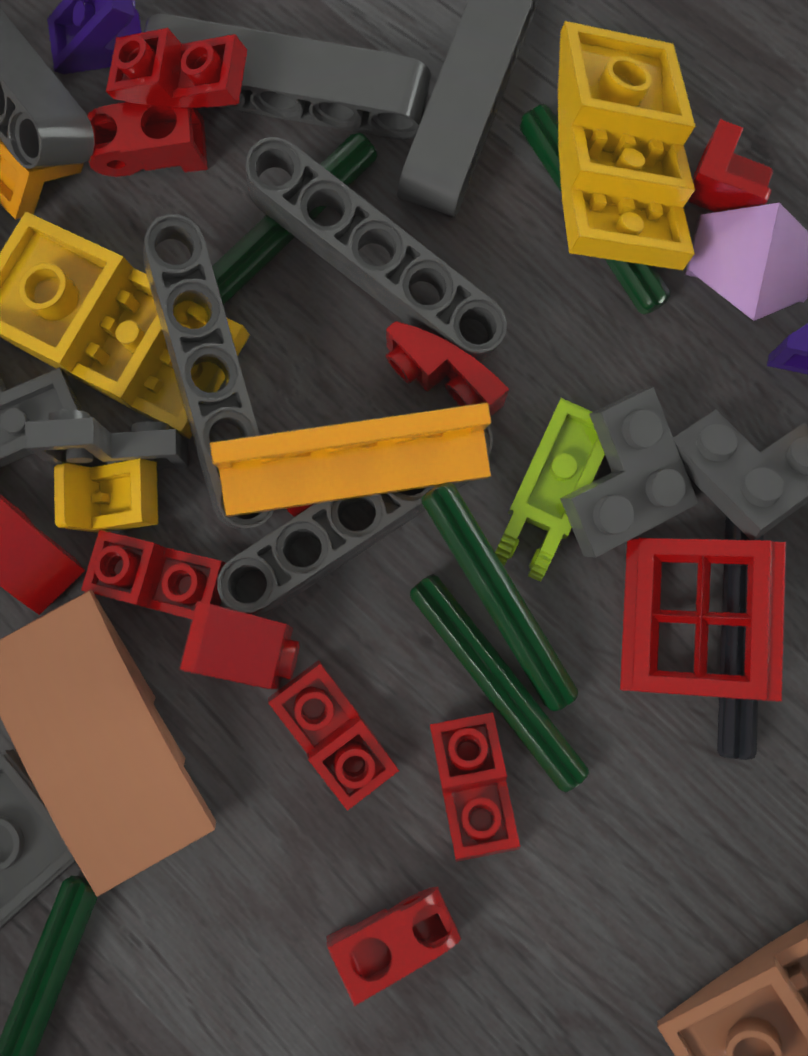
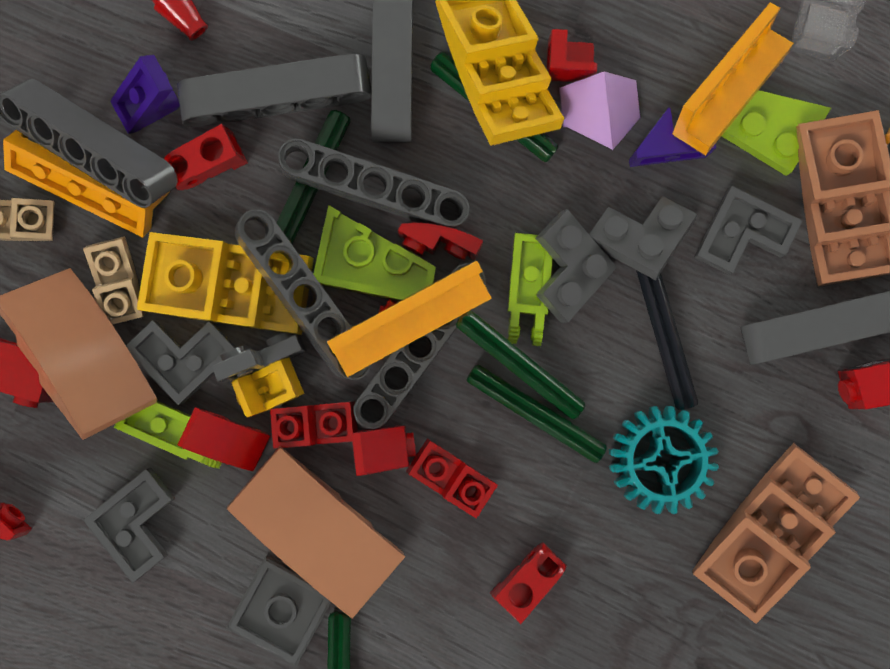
camera: 25 degrees left, 5 degrees up
(164, 72) = (212, 116): red slope -> none
(319, 361) = (366, 263): none -> lime wing
(474, 787) = (544, 478): red slope -> none
(727, 836) = (668, 476): none -> teal gear
(762, 618) = (675, 323): red piece -> none

